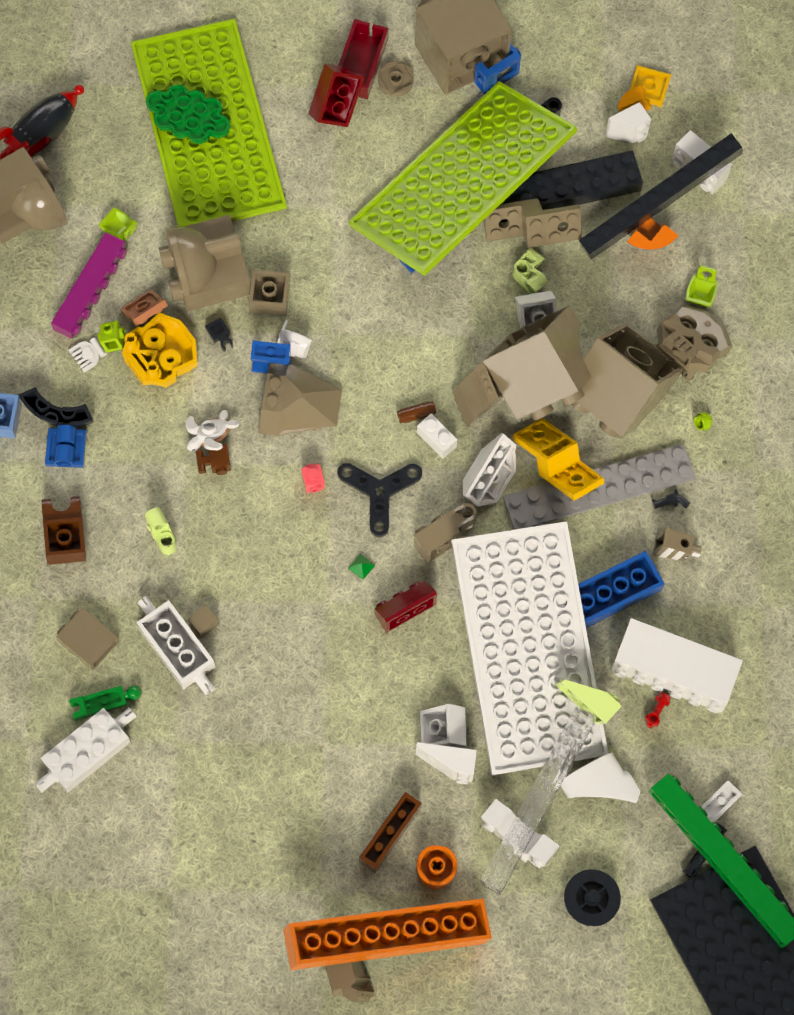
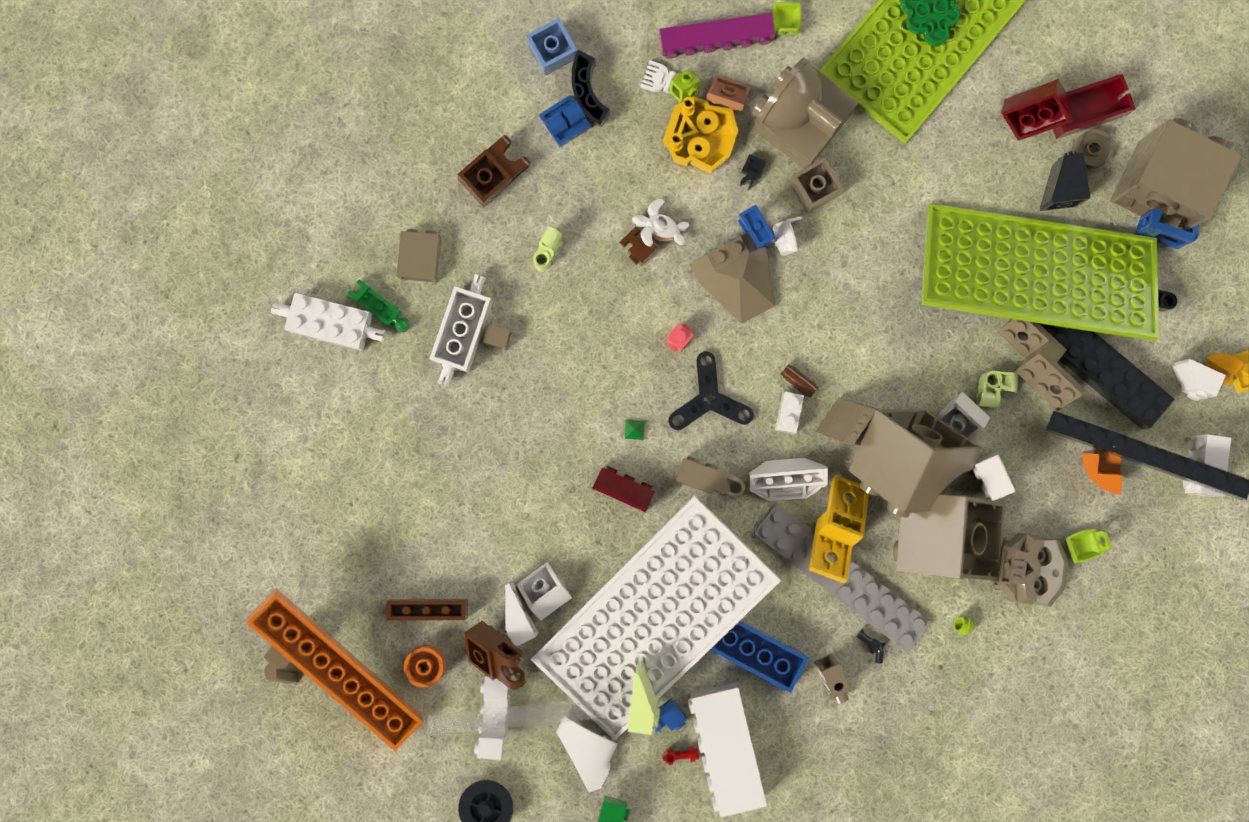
camera: 60 degrees right, 15 degrees up
(408, 114) = (1066, 183): none -> black slope
(468, 795) = (494, 655): none -> reddish brown brick
(598, 315) = (994, 475): none -> white piece
(624, 693) = (671, 716): none -> blue brick

